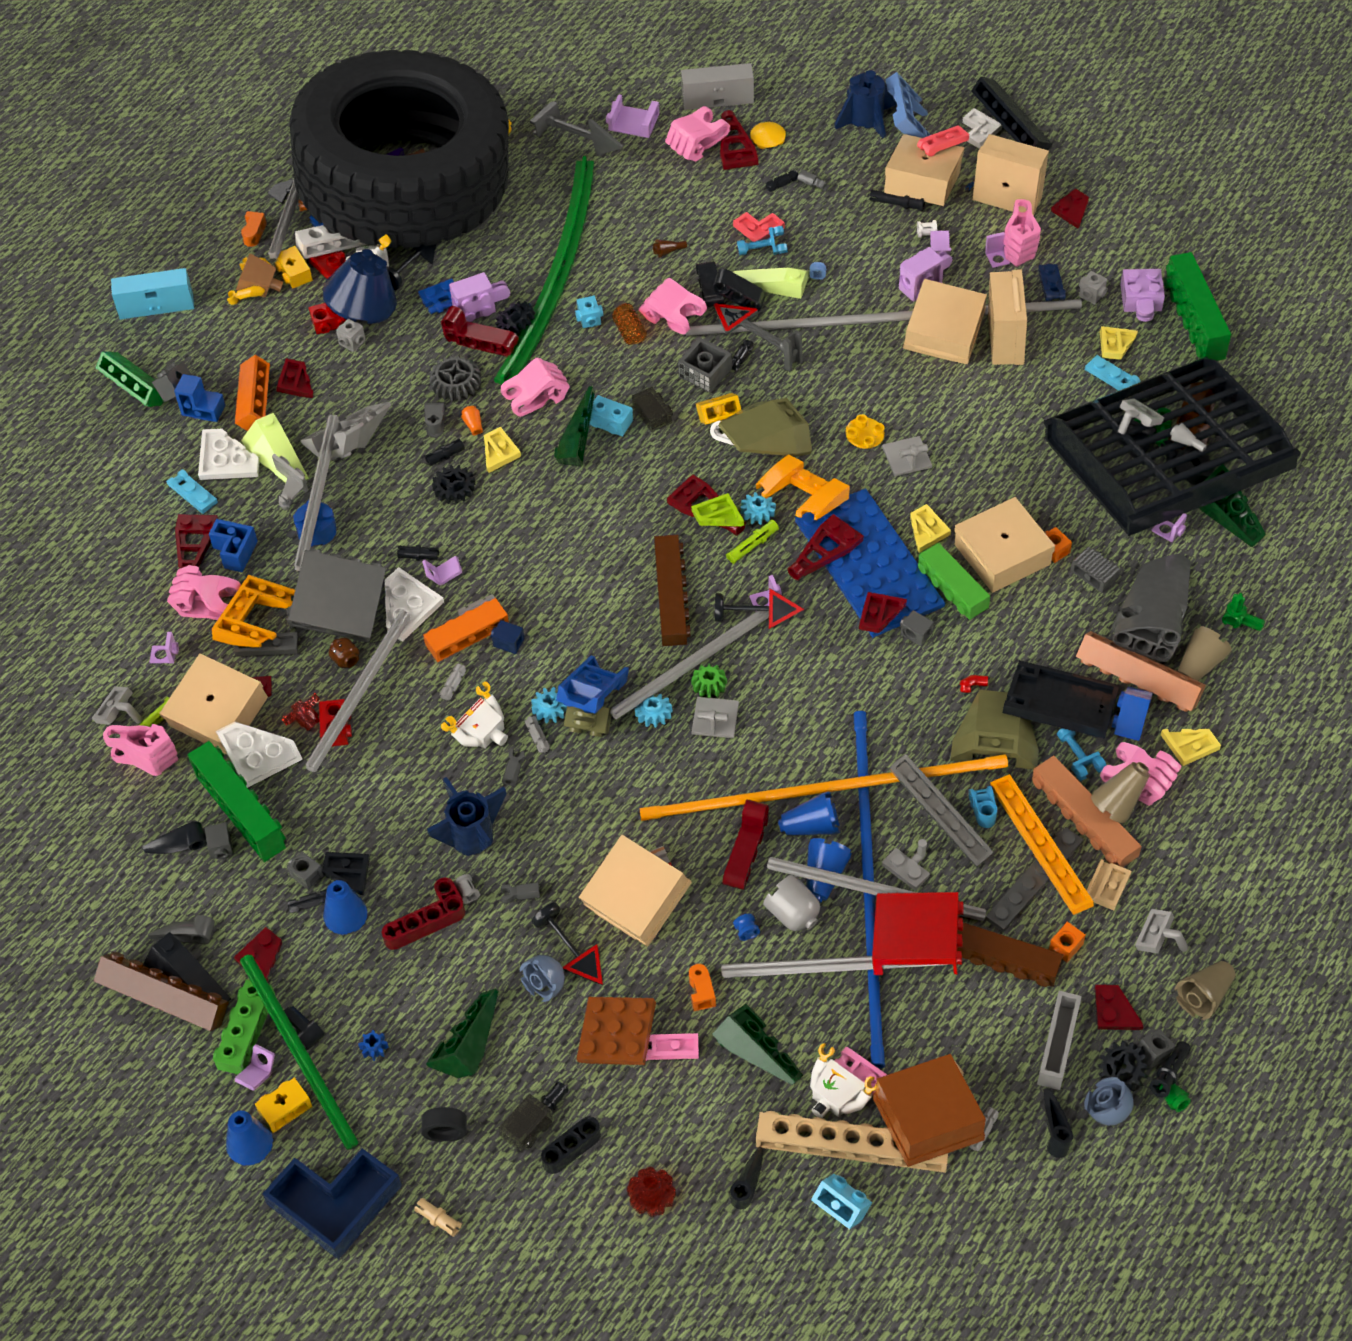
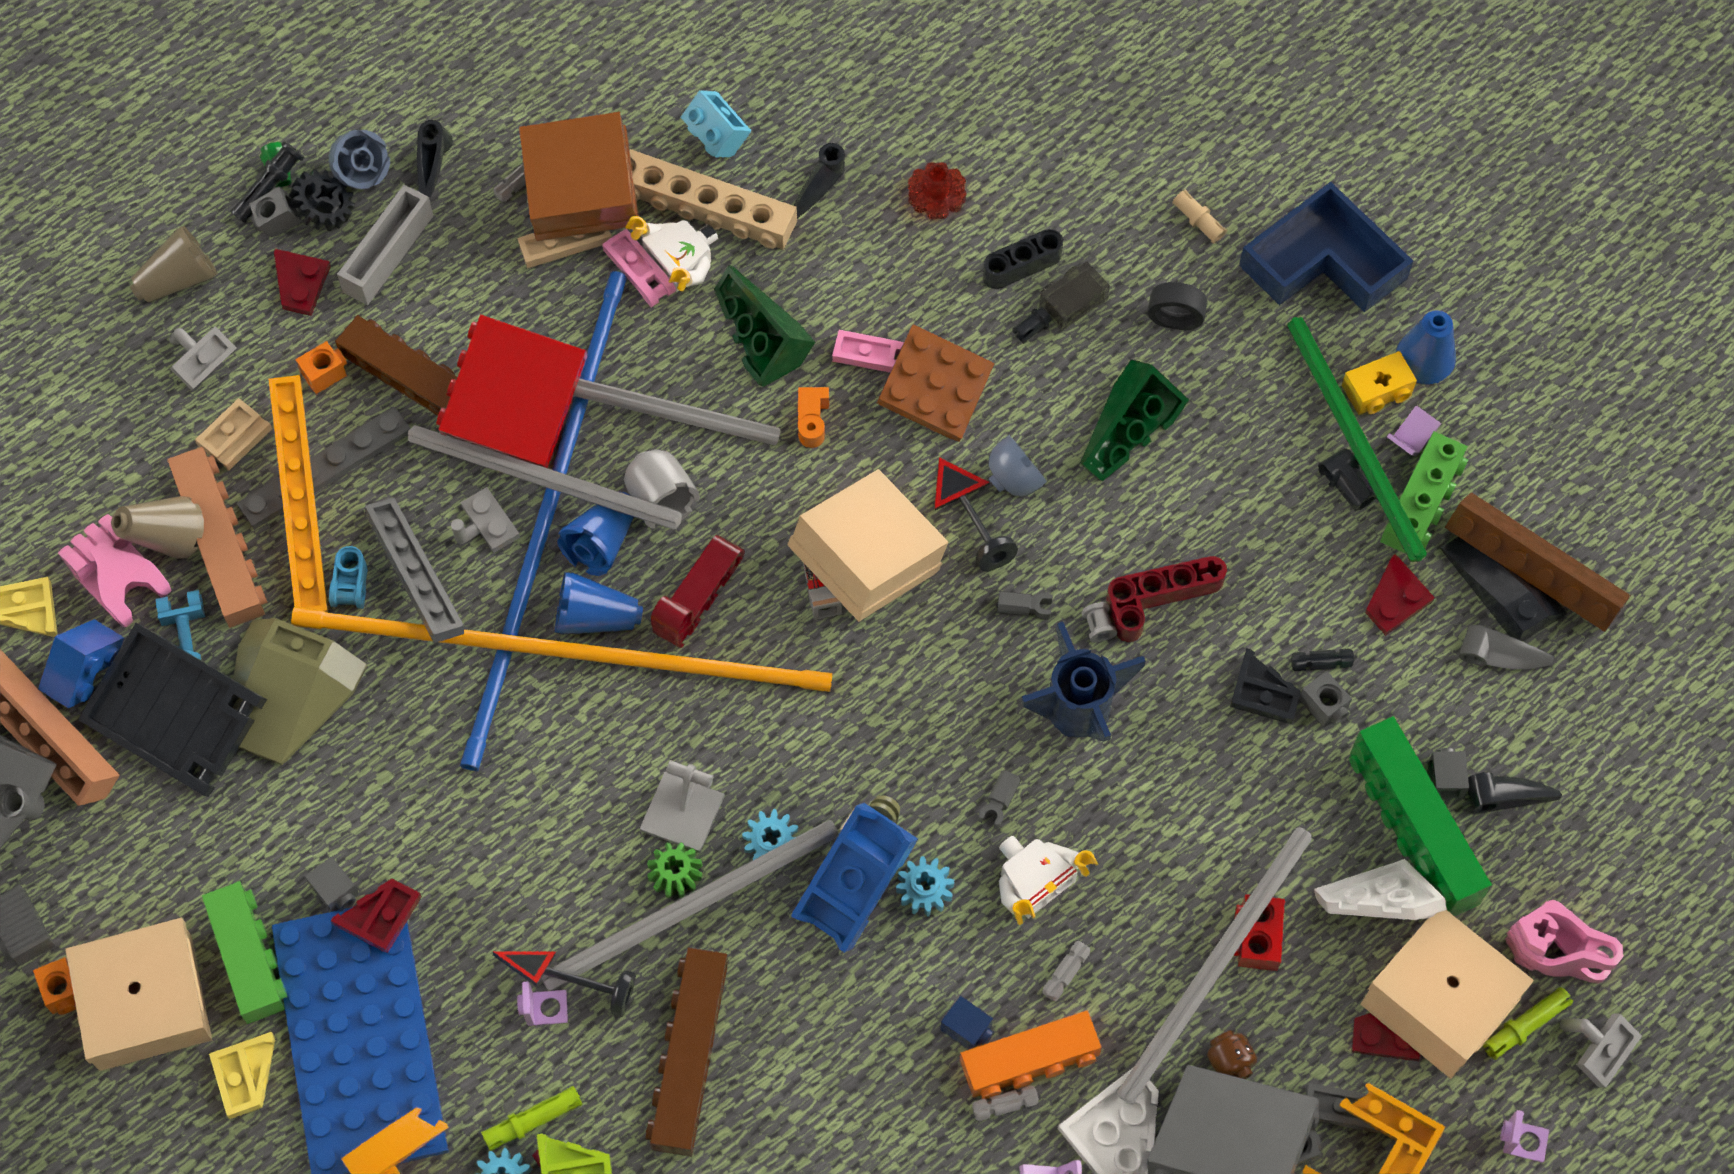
camera: 170 degrees left, 10 degrees up
(303, 712) = (1310, 957): clear red plant -> none
(343, 909) = (1275, 627): blue cone -> none
(377, 1049) = (1257, 441): blue gear -> none
(537, 734) = (953, 846): light grey axle -> none
(746, 926) = (729, 480): blue wheel -> none
(839, 532) = (386, 1085): dark red plate -> none
(973, 680) = (287, 782): red arm -> none

